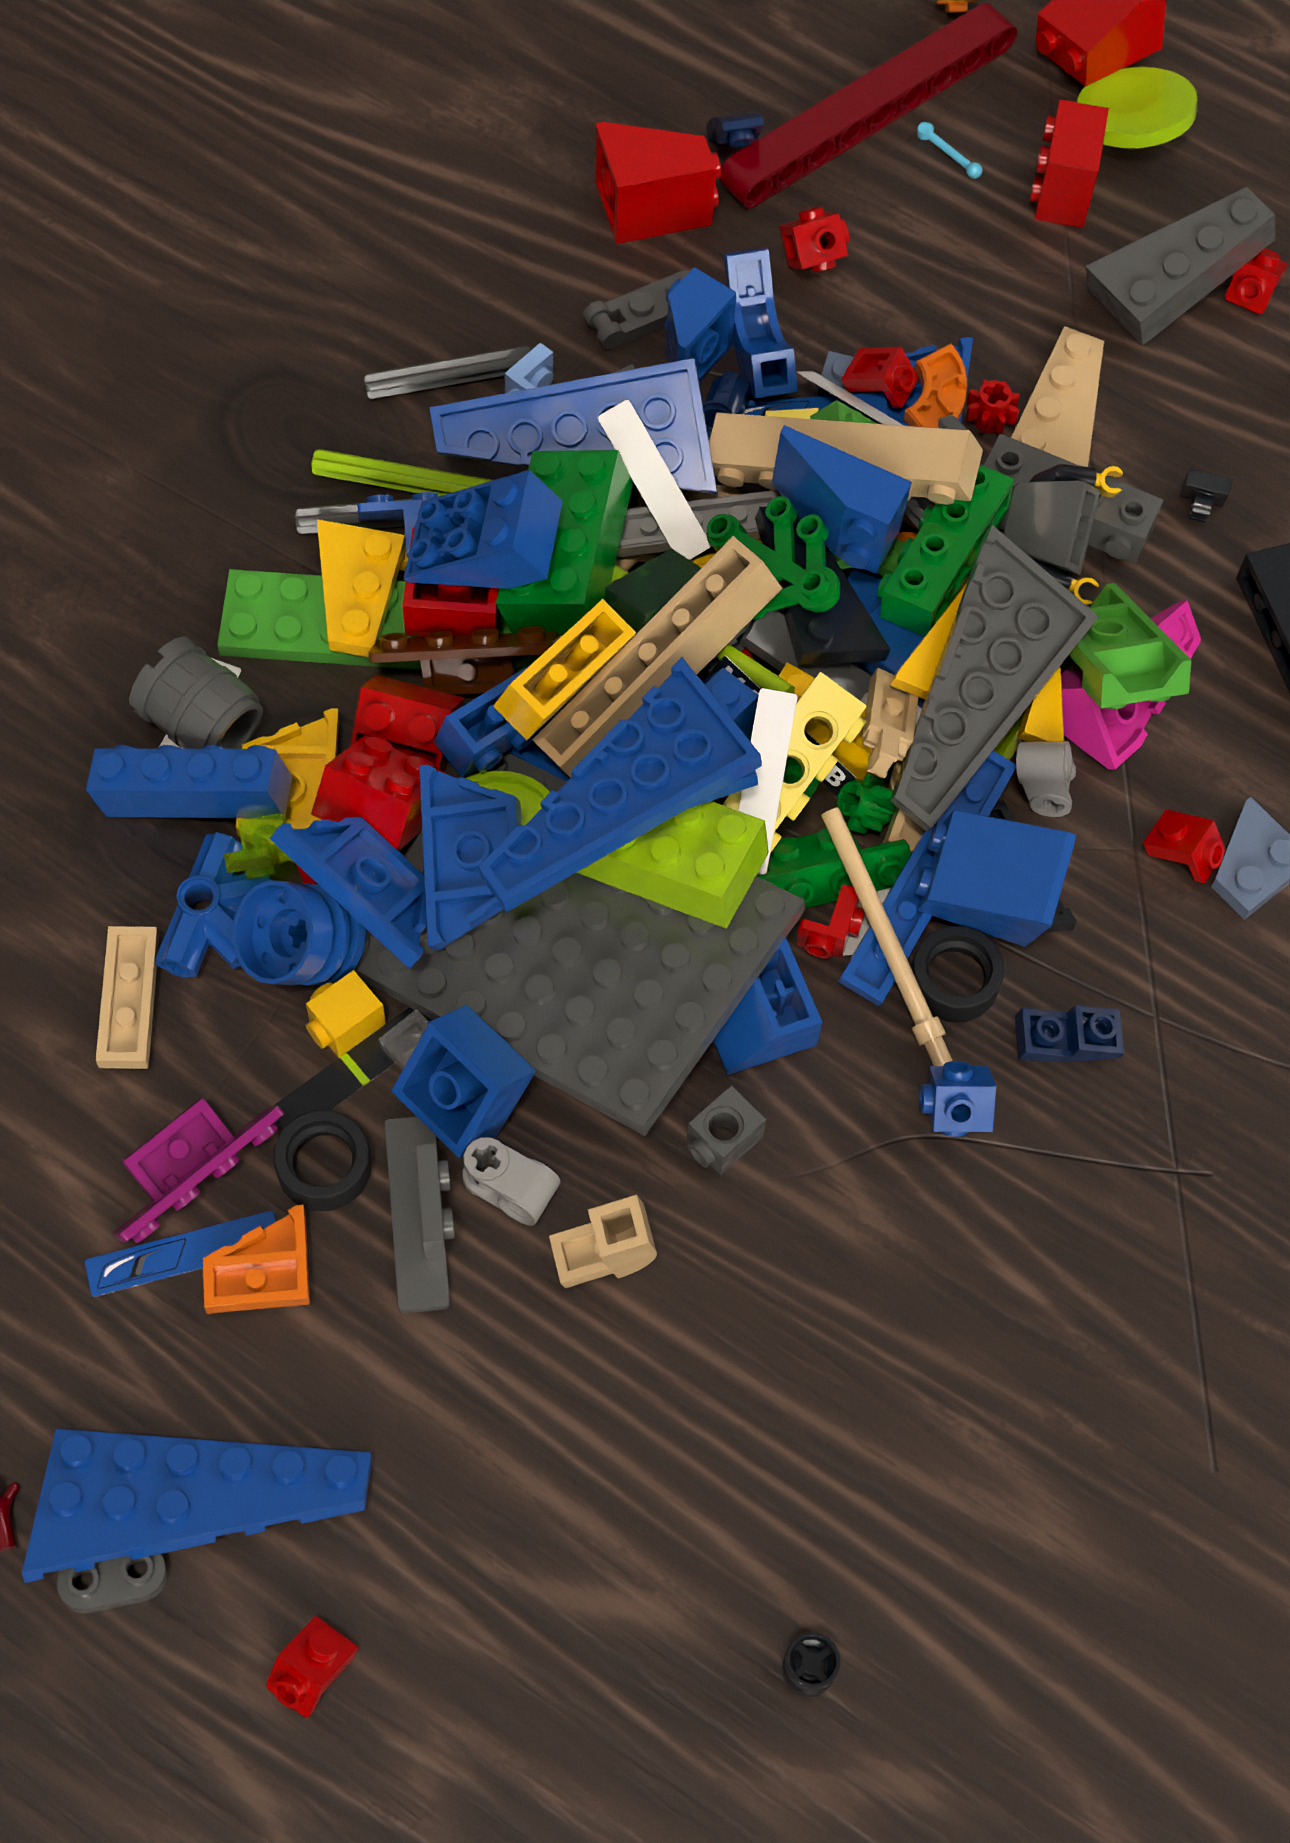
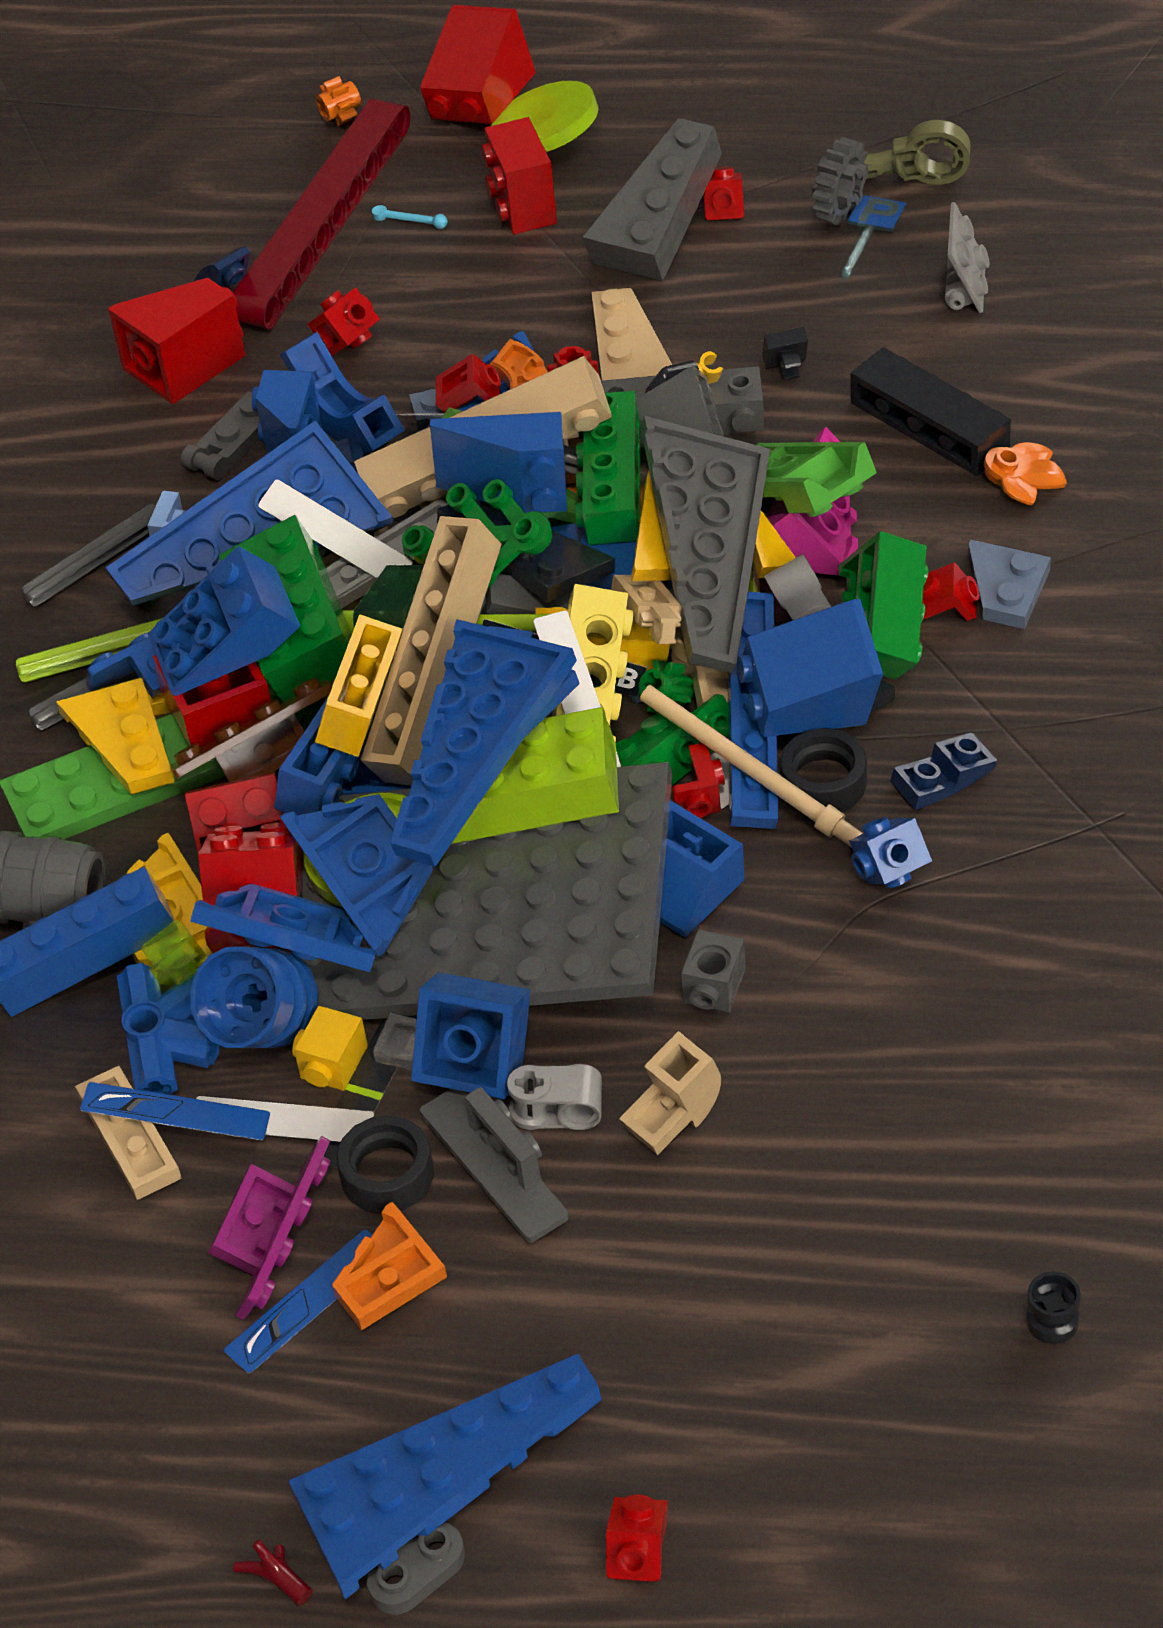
camera: 20 degrees left, 15 degrees down
(177, 1001) = (175, 1111): none -> blue sticker
(266, 1055) = (303, 1120): none -> white sticker
(1121, 830) = (889, 581): none -> green wedge

